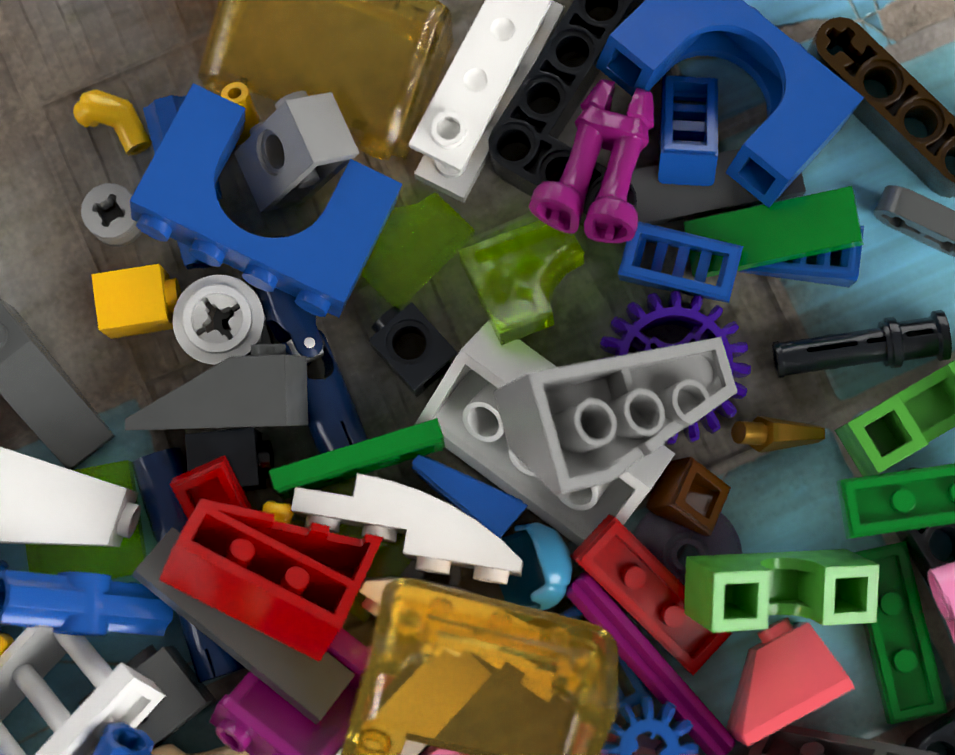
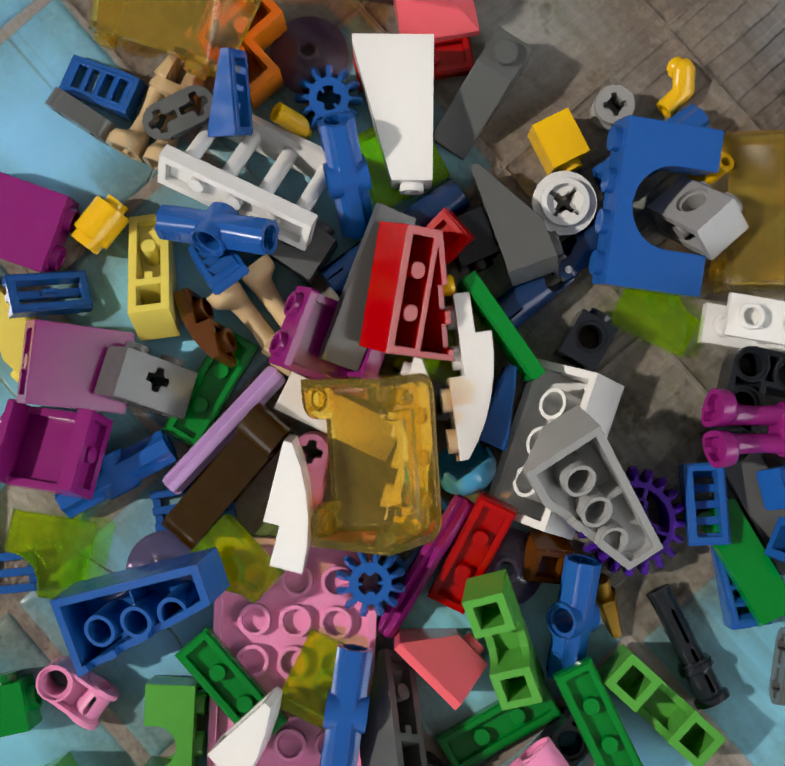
camera: 70 degrees right, 5 degrees up
(518, 276) = (660, 396): clear neon green tile -> none
(773, 480) = (574, 613): none -> blue piece

